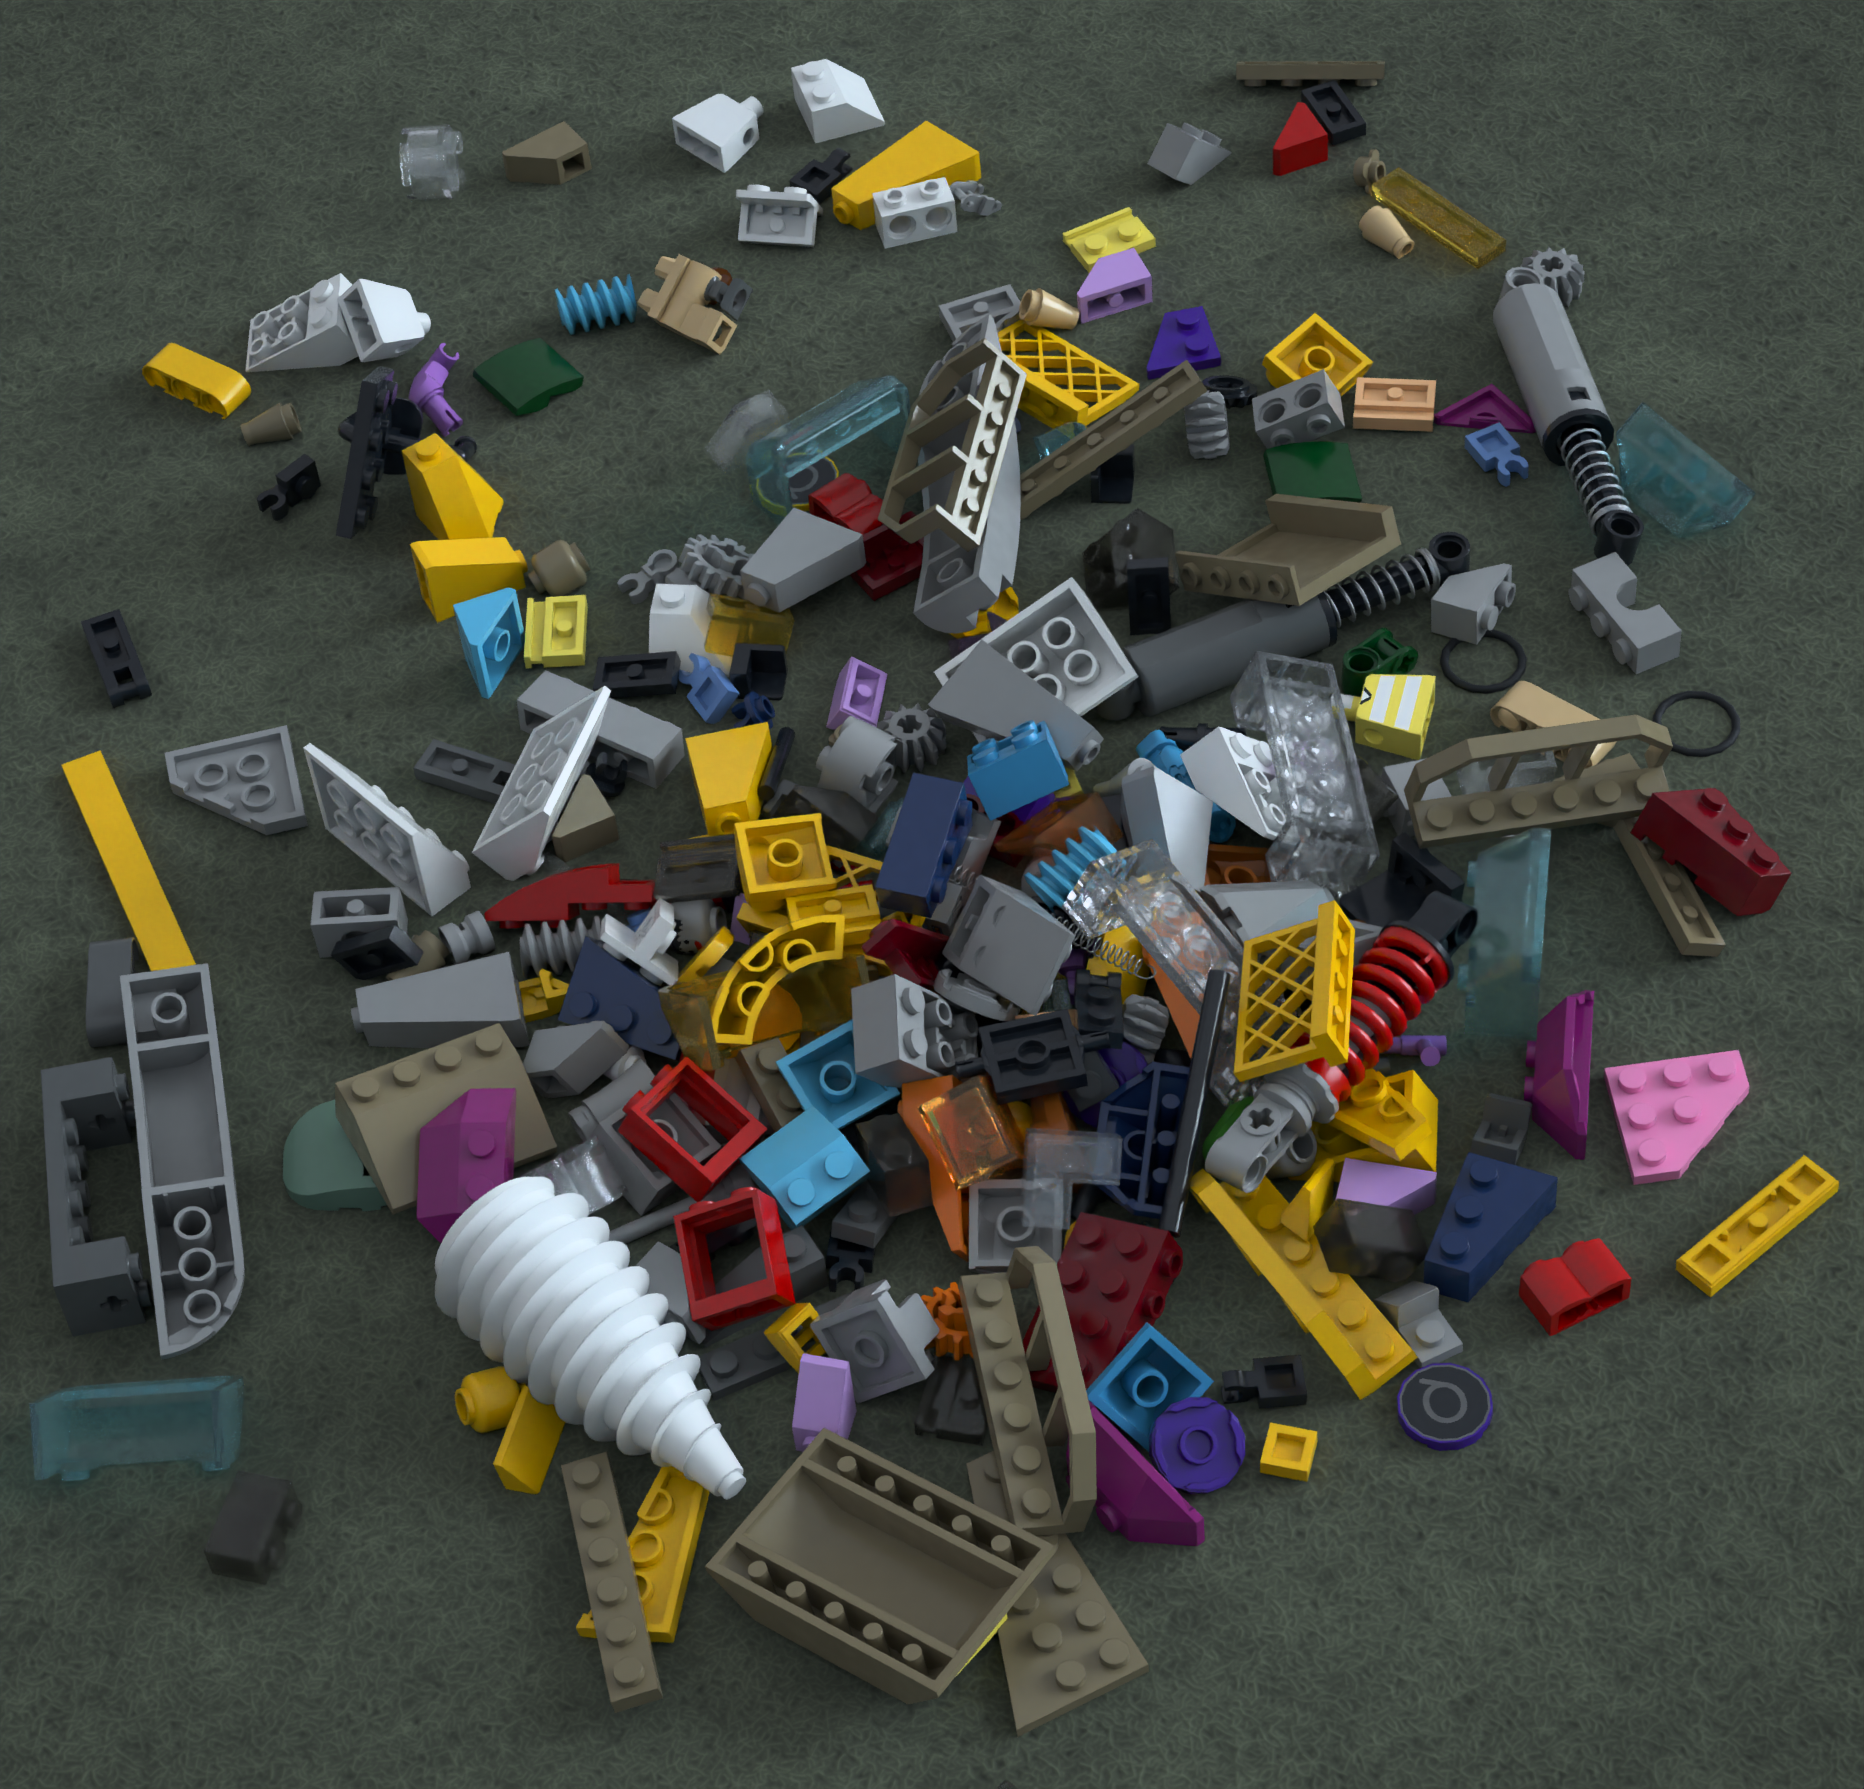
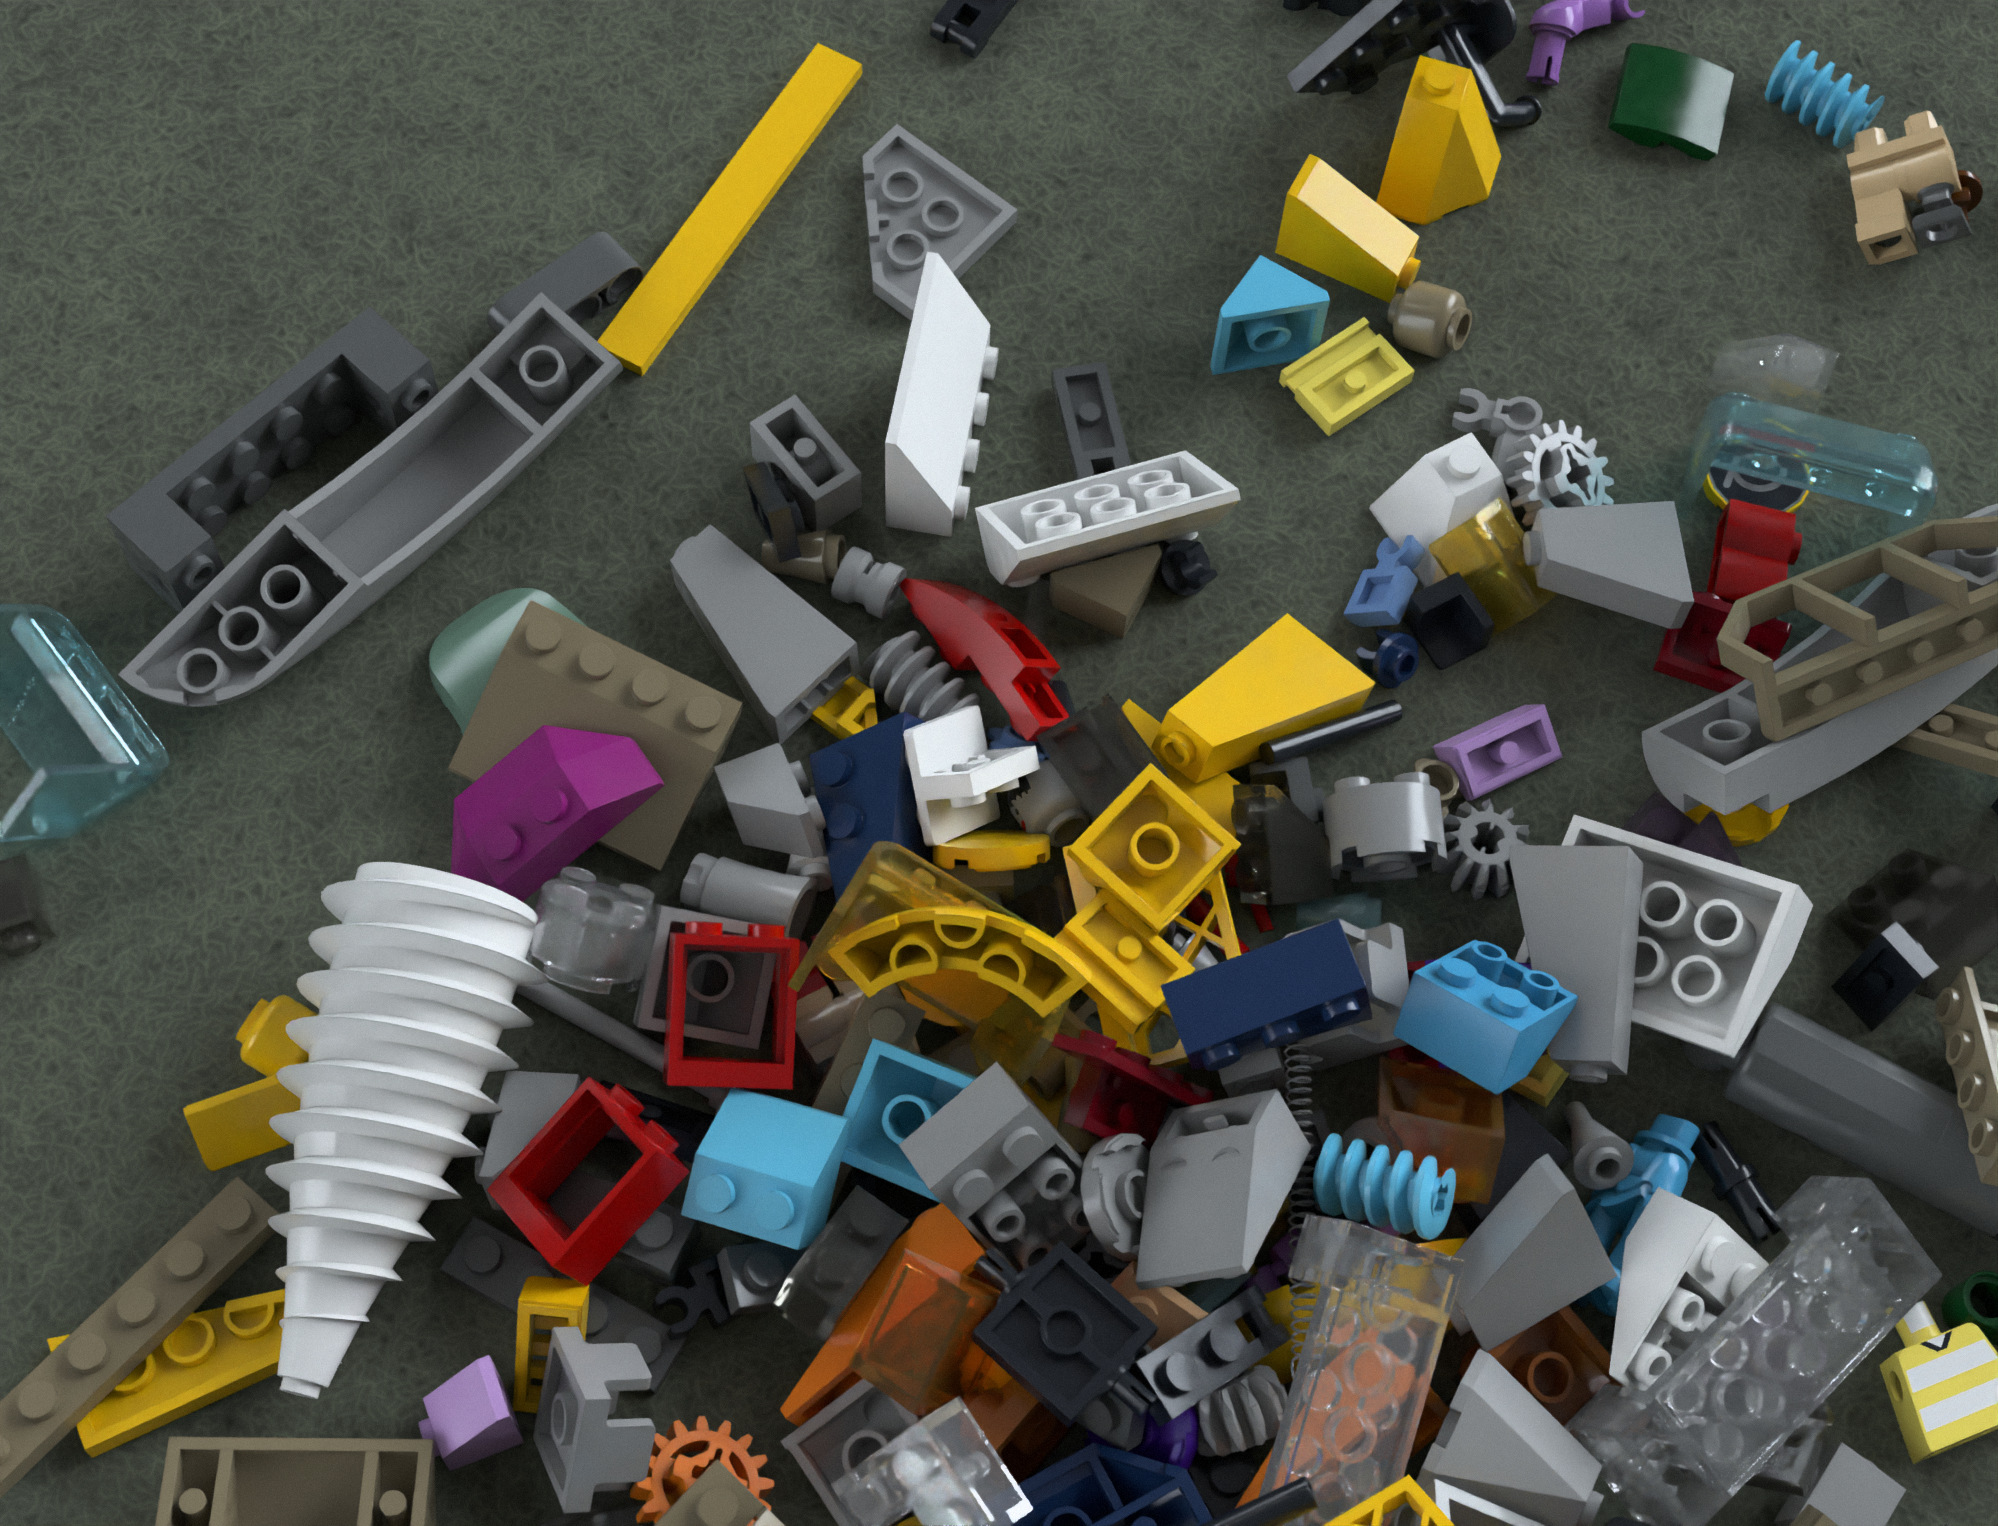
camera: 45 degrees right, 15 degrees up
(625, 732) = (1252, 541): light grey brick -> none
(638, 674) = (1347, 500): black plate -> none

